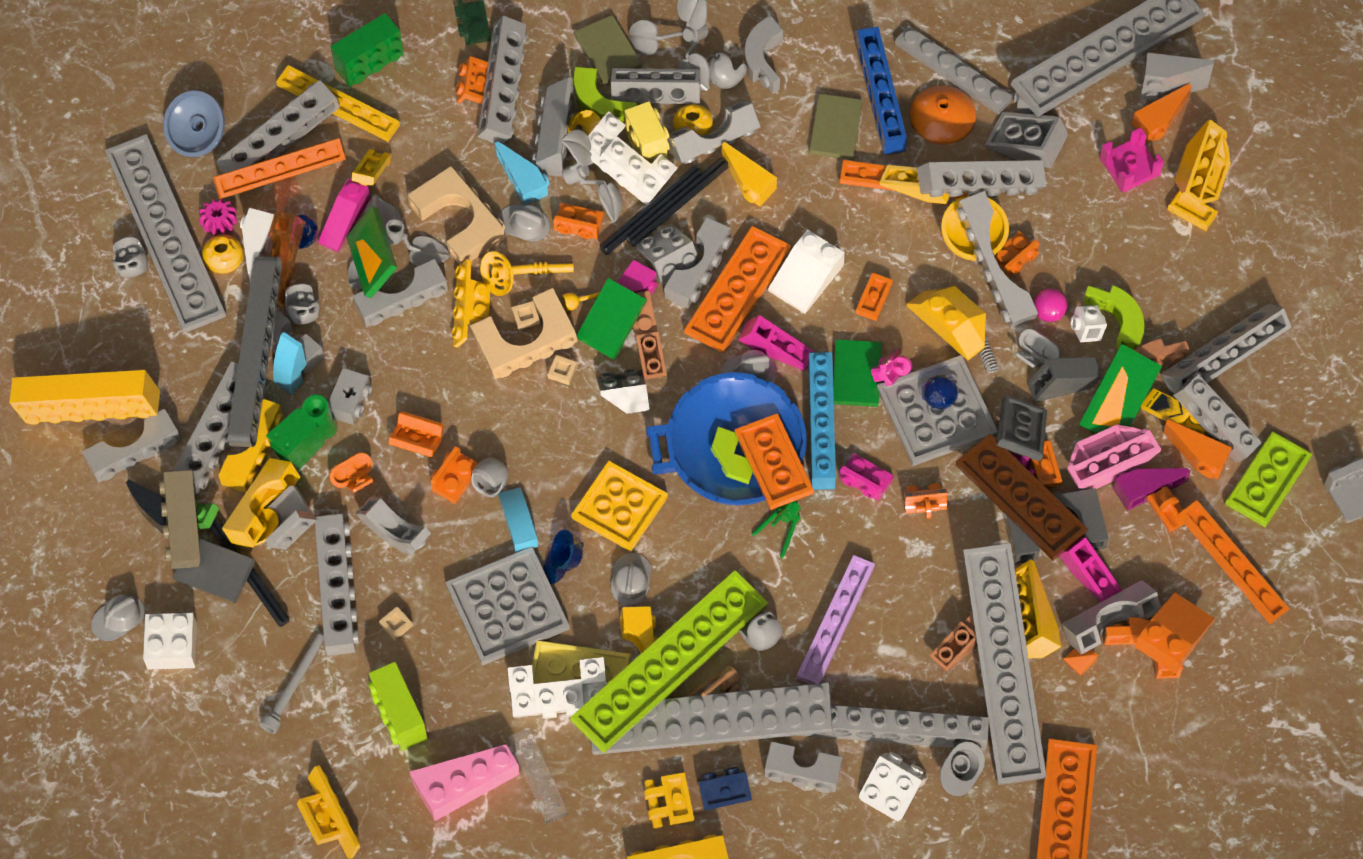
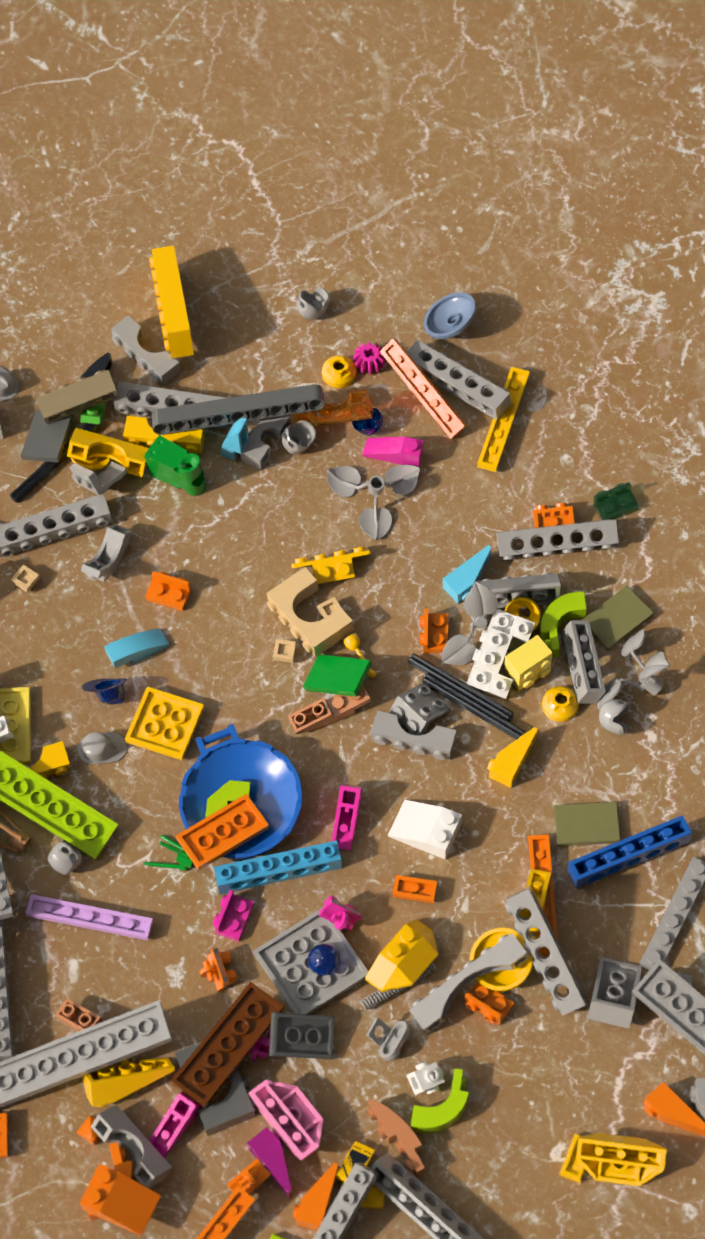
camera: 80 degrees right, 0 degrees up
(165, 234) = (346, 324): light grey plate -> none
(256, 236) = (337, 386): white slope -> none
(349, 395) = (223, 494): light grey brick -> none
(351, 472) = (154, 513): orange bracket -> none
(367, 50) = (556, 425): green brick -> none
(371, 167) = (441, 456): yellow plate -> none
(371, 252) = (354, 474): green tile -> none
(417, 434) = (197, 553): orange bracket -> none
(427, 283) = (344, 527): light grey arch -> none
(451, 189) = (405, 558): tan arch -> none
(491, 475) = (170, 615): light grey helmet -> none
(505, 270) = (364, 579): yellow dish -> none
(507, 606) = (56, 657): light grey plate -> none
(525, 222) = (424, 590): light grey piece -> none
(625, 390) = (272, 702): slope -> none
(639, 278) = (381, 689): dark pink slope -> none
(737, 289) = (395, 773): orange plate -> none
(738, 121) = (531, 701): light grey arch -> none
(751, 362) = (319, 800): light grey piece -> none
(759, 42) = (645, 738): light grey arch -> none
(853, 374) = (345, 884): green tile -> none
(942, 124) = (622, 926): orange dish -> none
(1047, 469) = (274, 1067): orange plate -> none
(1050, 305) = (442, 1044): dark pink hair -> none
(1064, 377) = (366, 1068): dark grey slope -> none
(1120, 391) = (357, 1117): green tile -> none
(1131, 162) = (613, 1091): dark pink panel -> none

